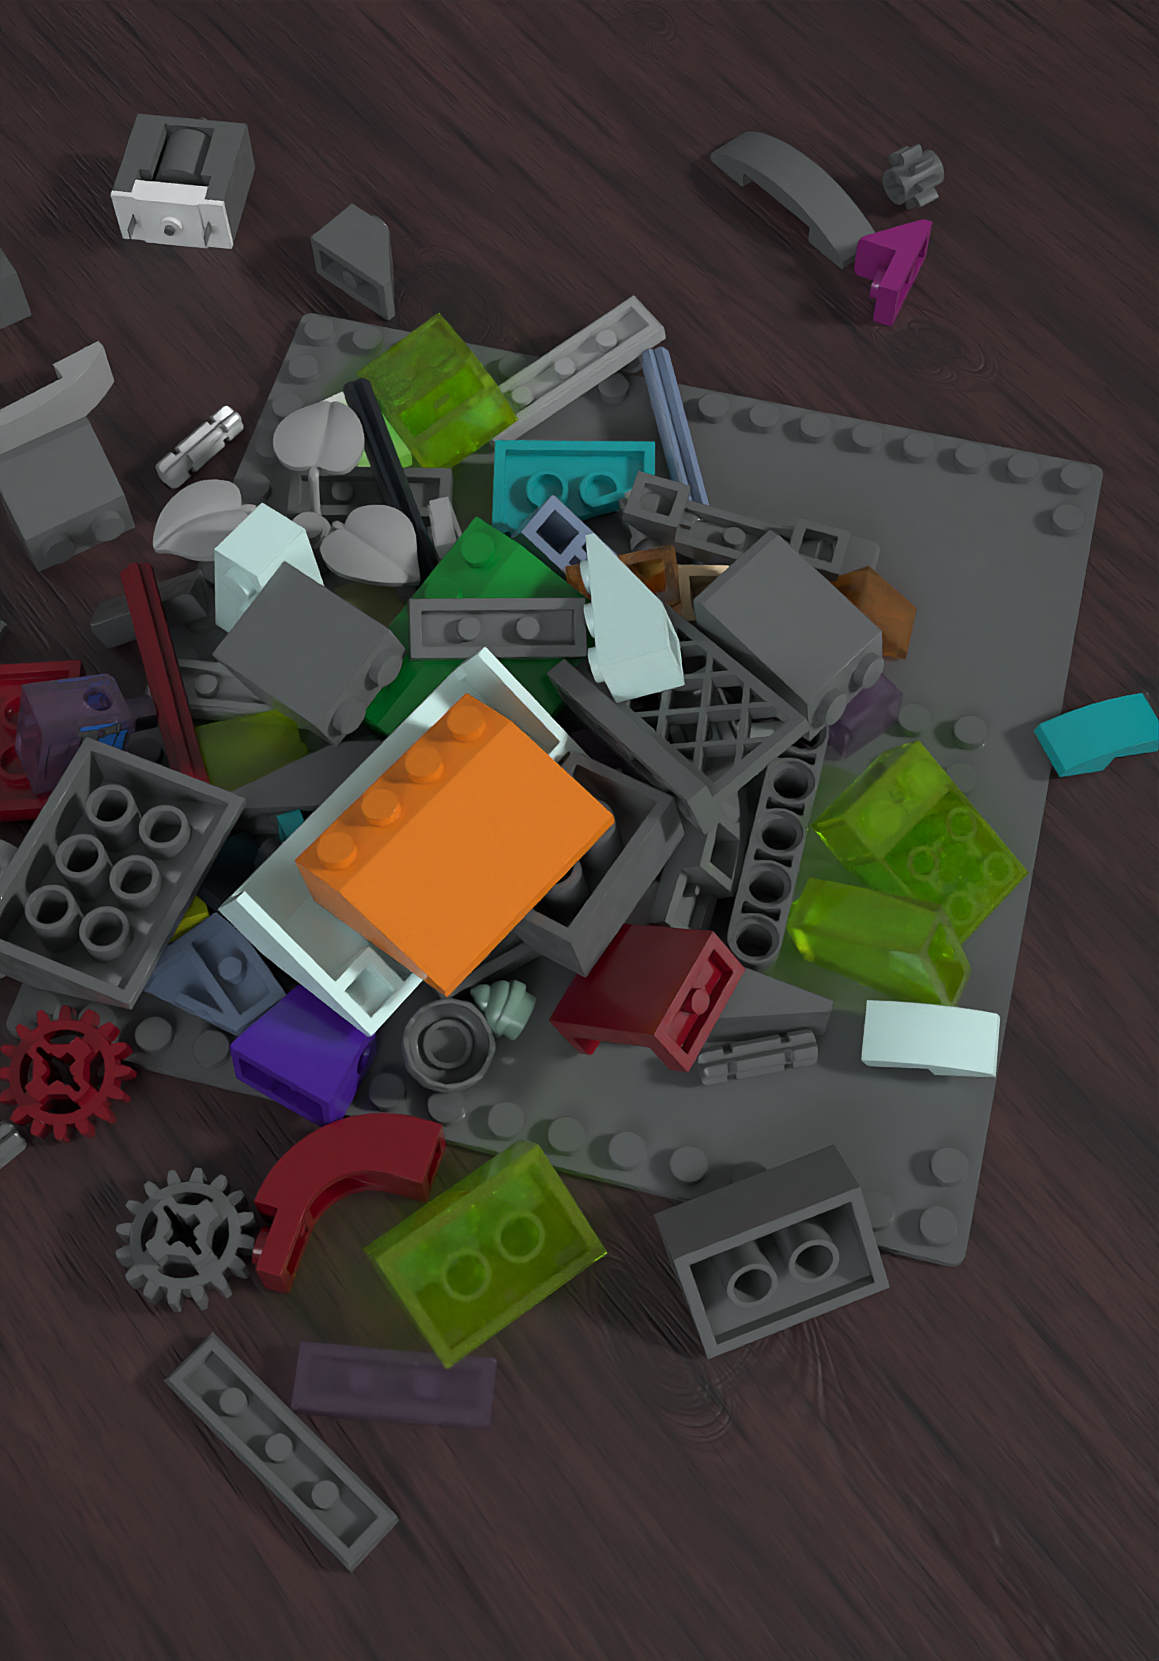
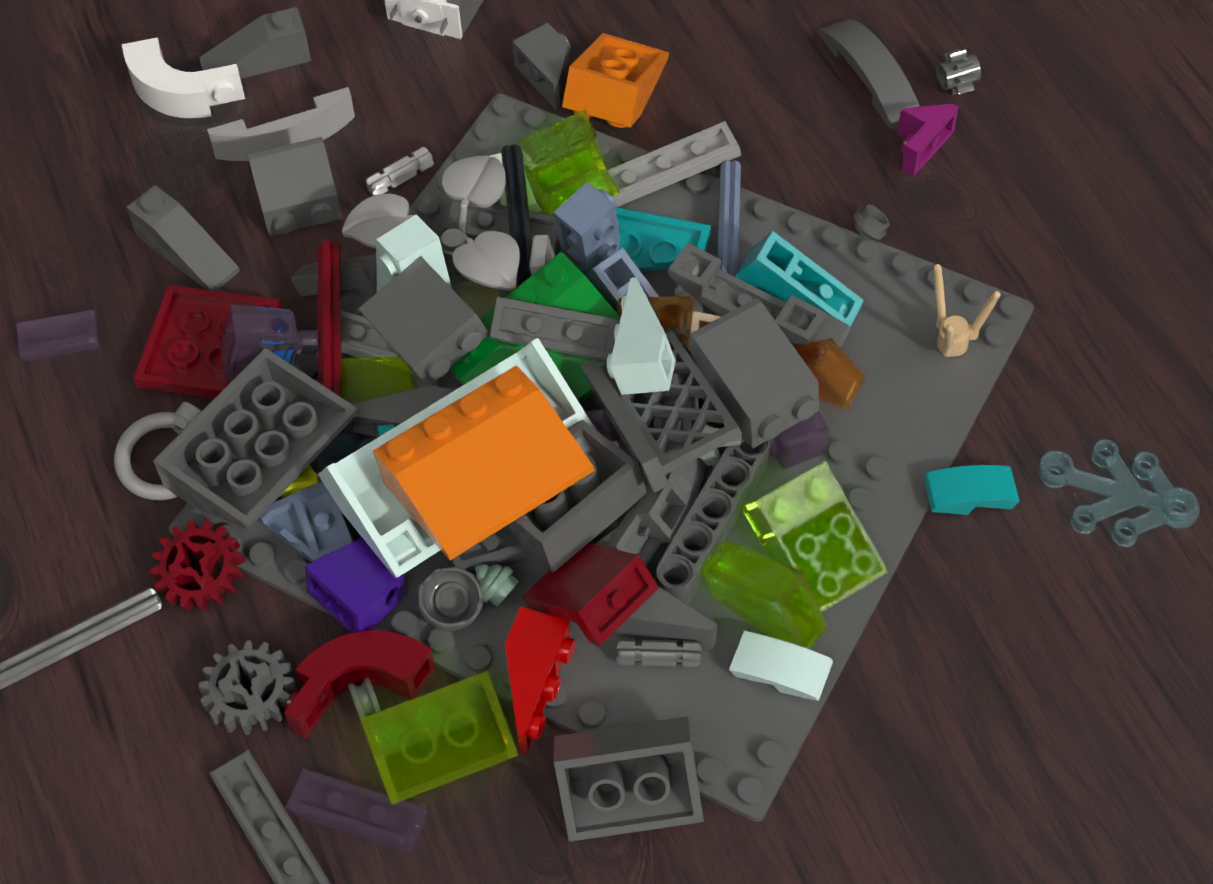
camera: 15 degrees right, 5 degrees down
(361, 1217) = (364, 697): none -> dark grey bush
(461, 267) = (614, 79): none -> orange slope
(497, 473) = (588, 226): none -> sand blue brick
(589, 1112) = (535, 655): none -> red slope
(778, 488) = (785, 271): none -> teal slope
(860, 398) = (871, 222): none -> dark grey plate
(1021, 523) = (954, 330): none -> tan plant

